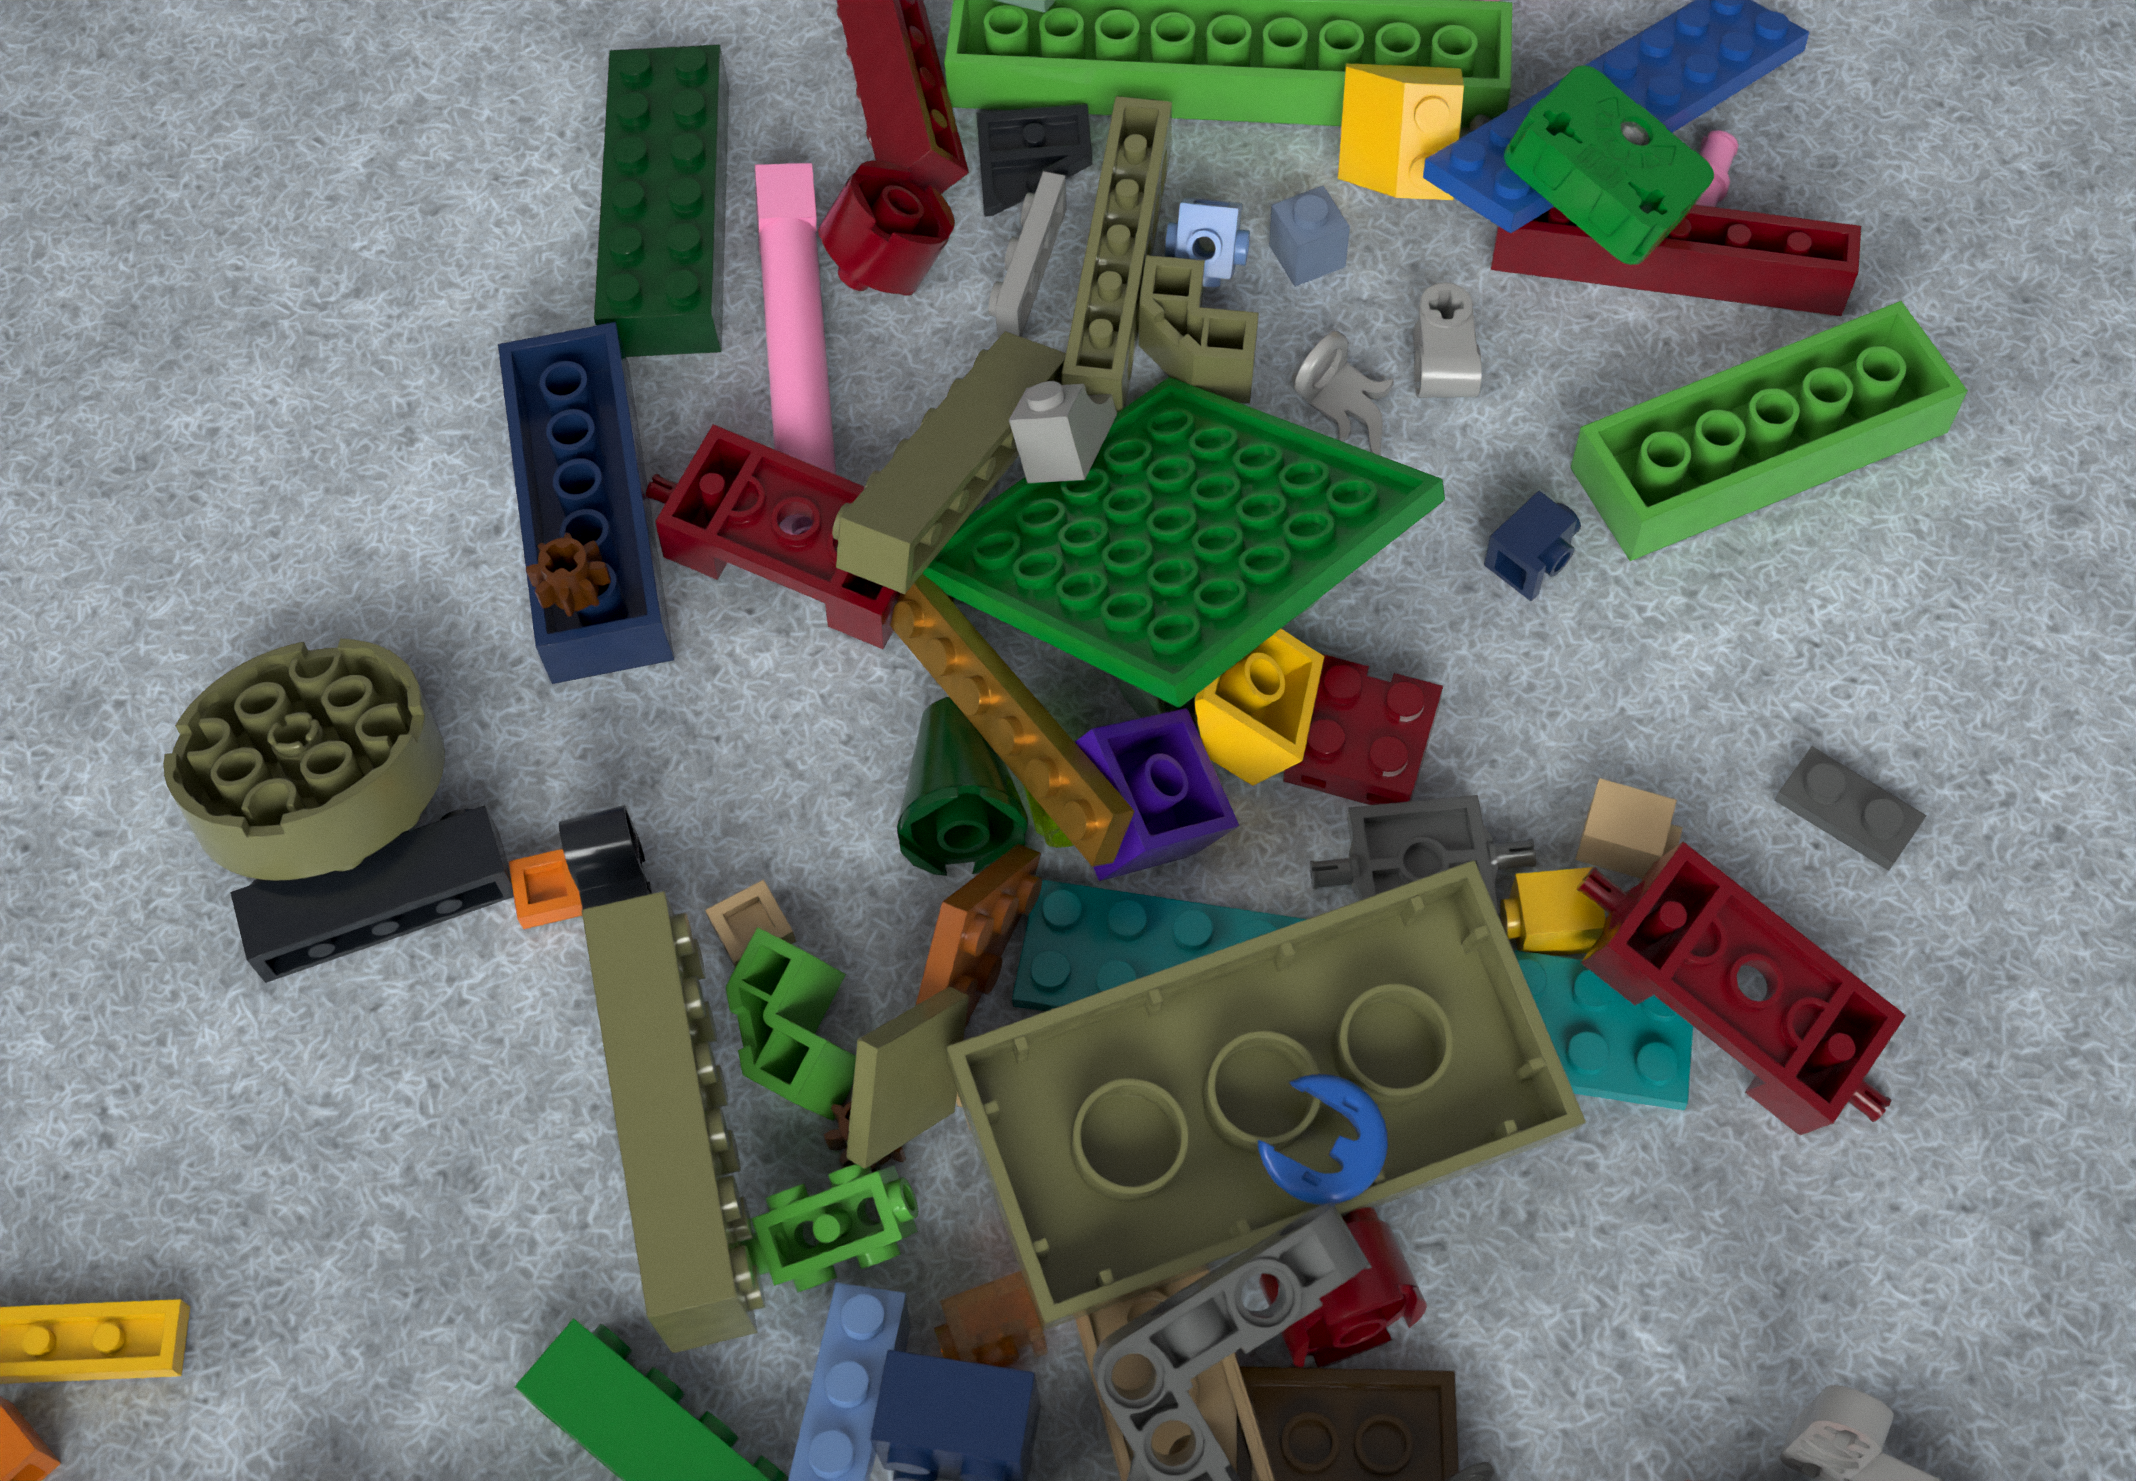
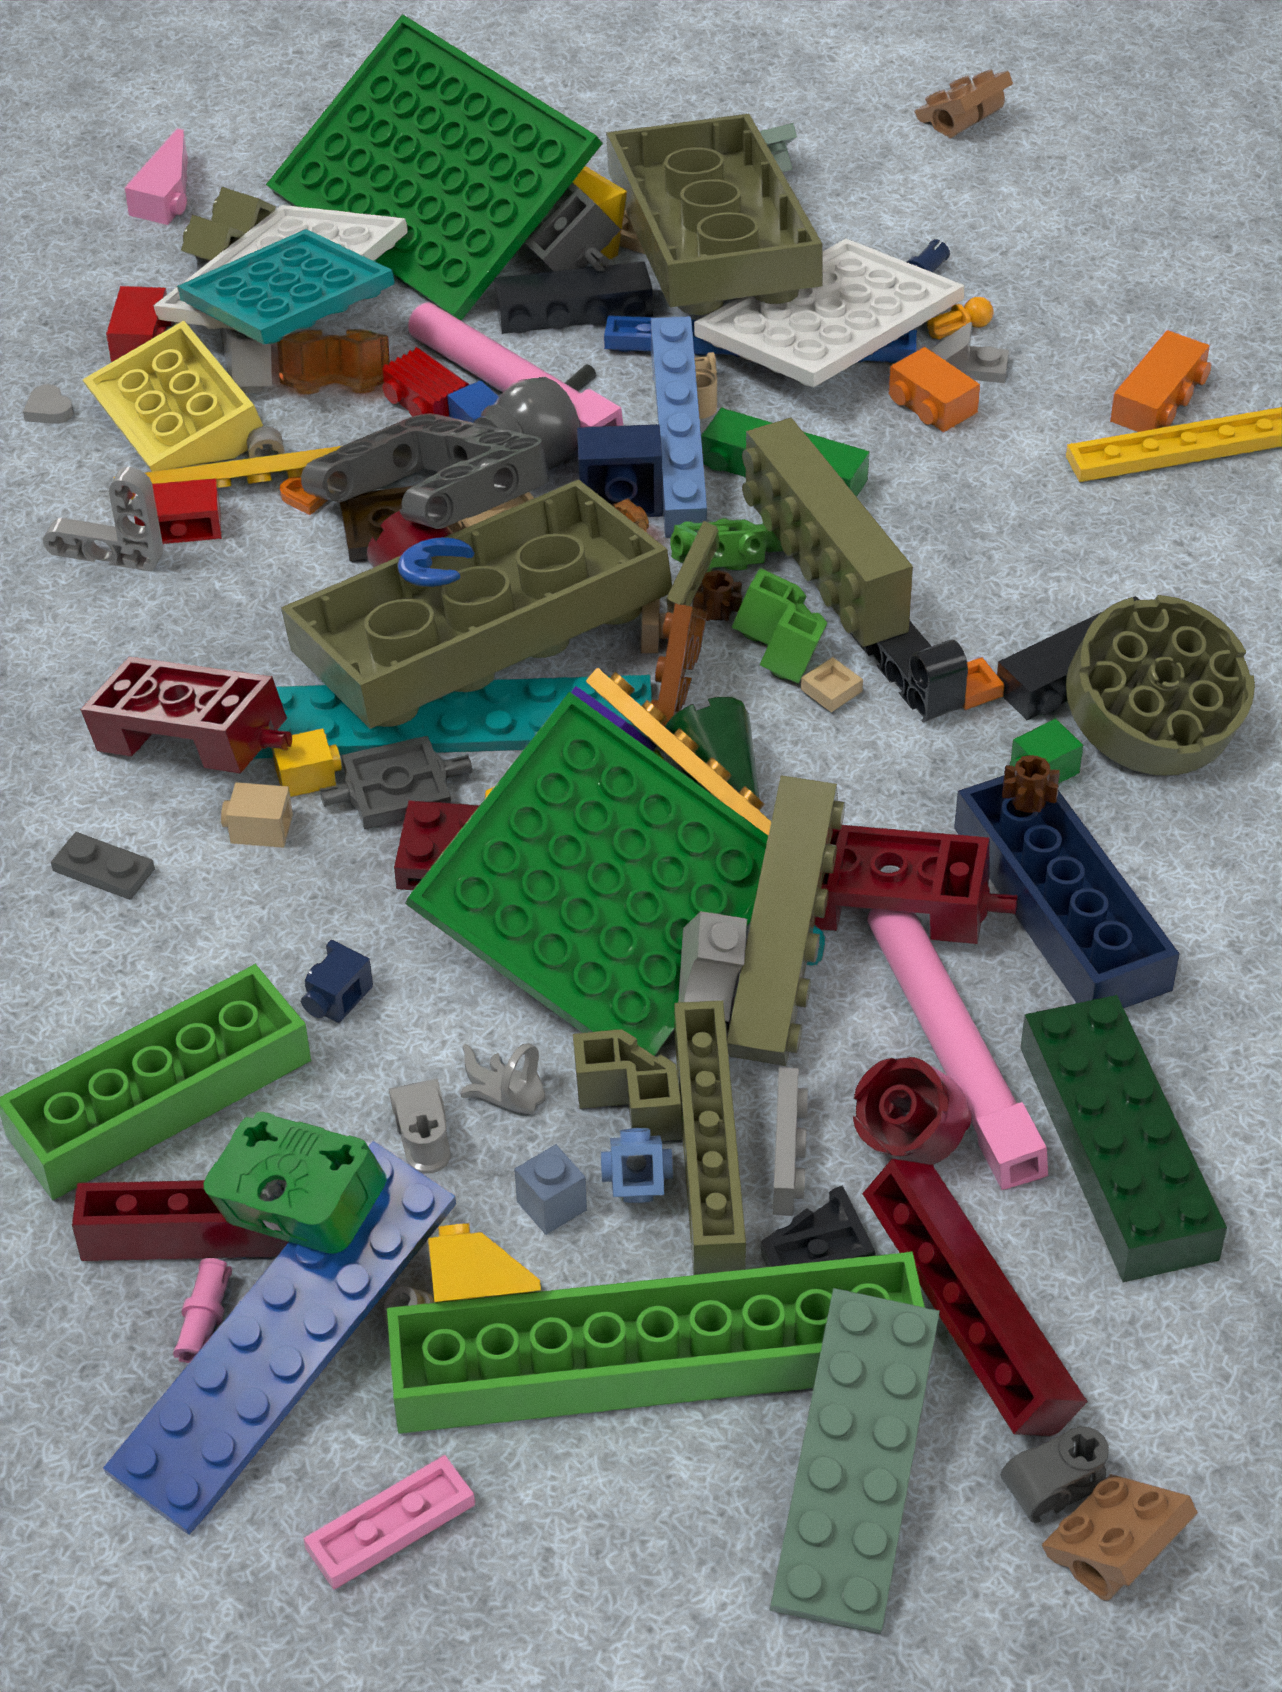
camera: 165 degrees right, 15 degrees down
(509, 726) = (1054, 744): none -> green brick

